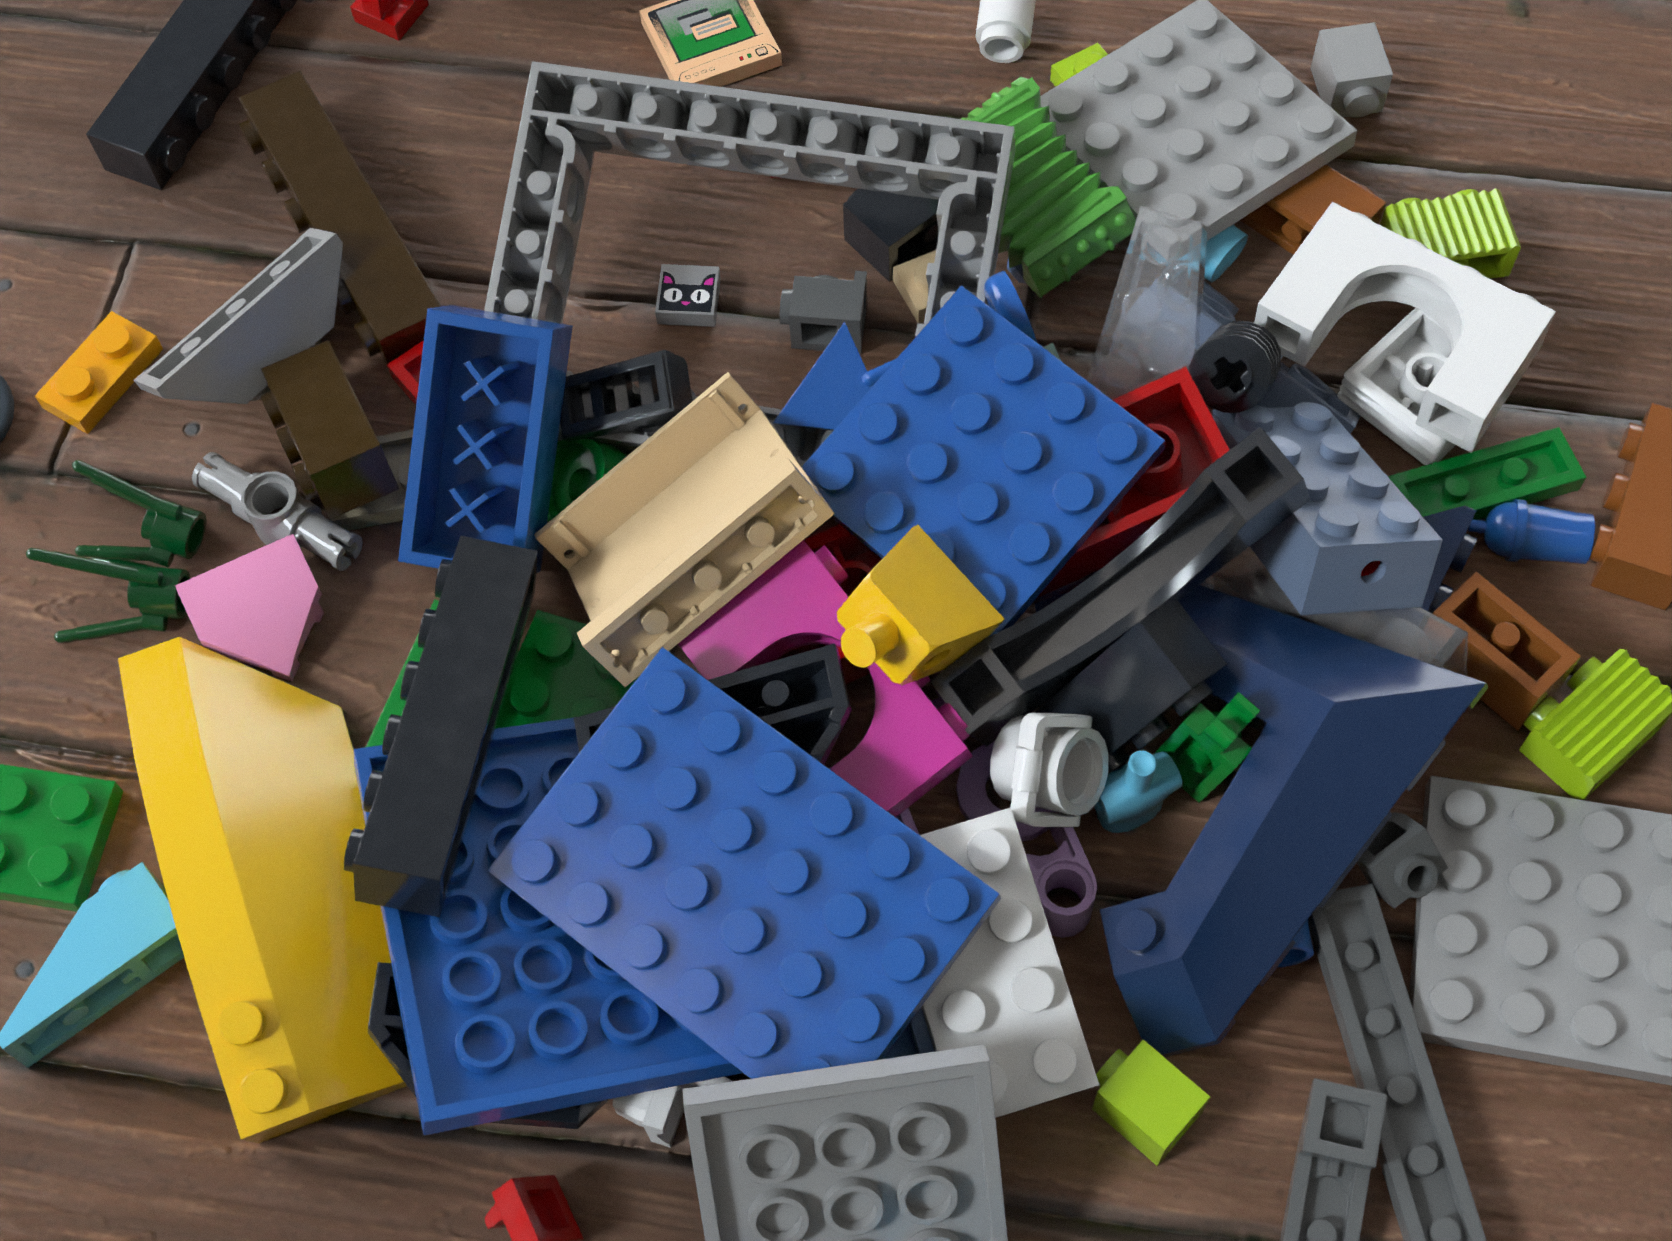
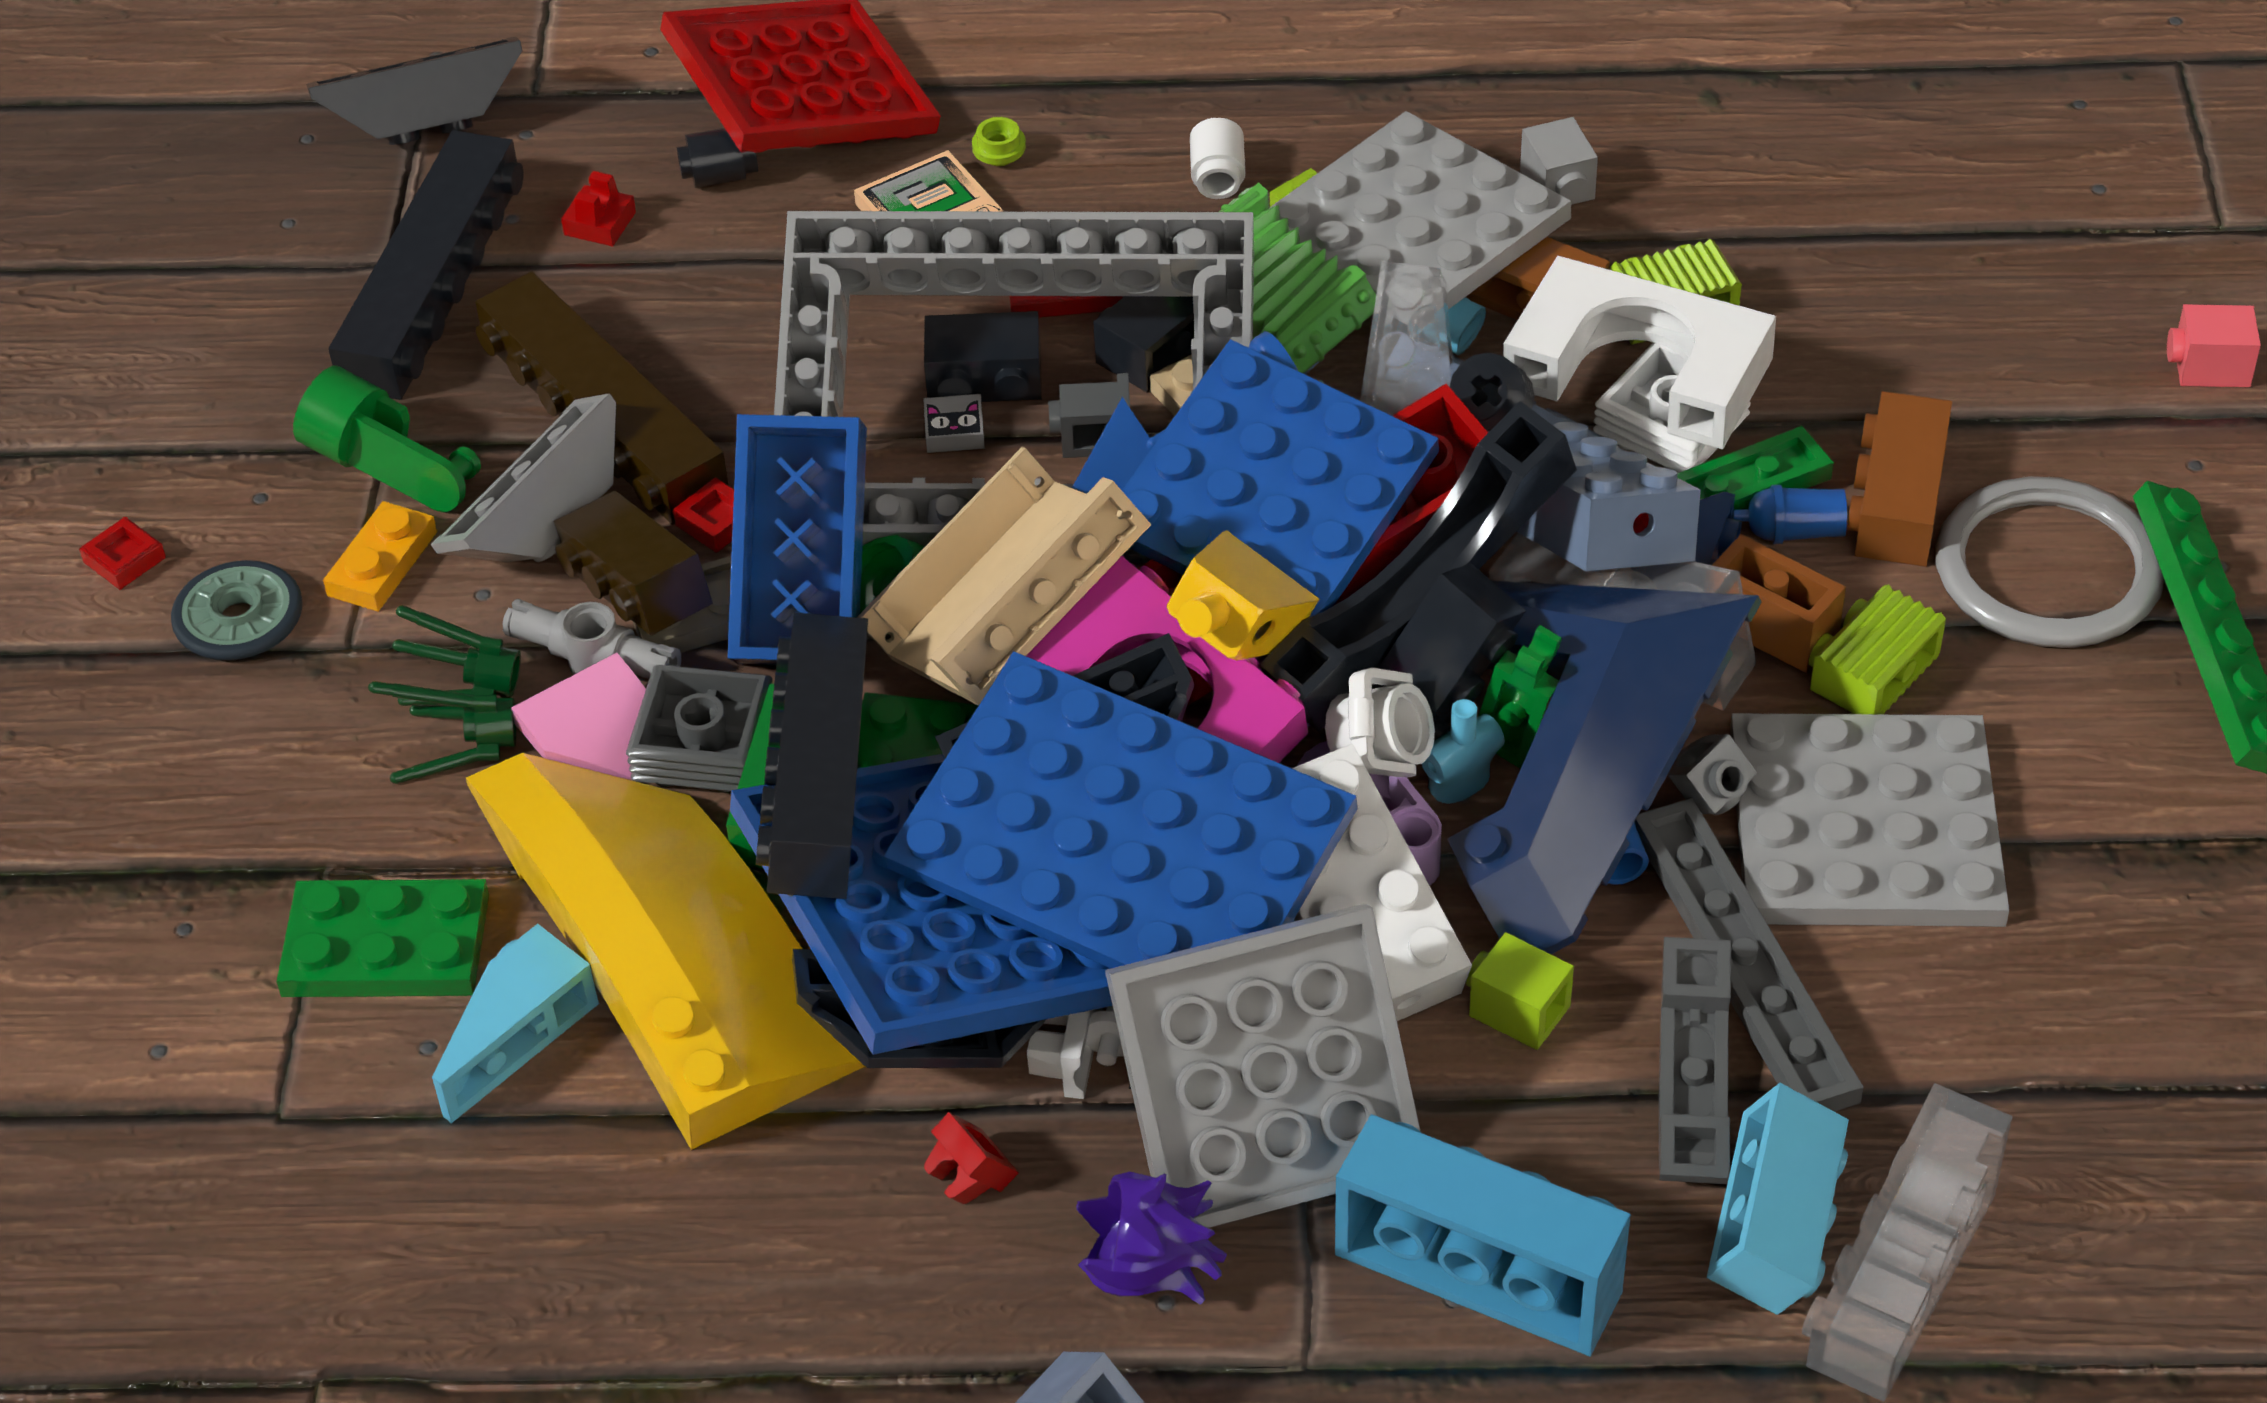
camera: 10 degrees left, 15 degrees down
(105, 227) = (369, 430): none -> green piece
(345, 603) = (696, 727): none -> dark grey brick
(662, 387) = (928, 507): black slope -> none
(728, 224) = (983, 356): none -> black brick

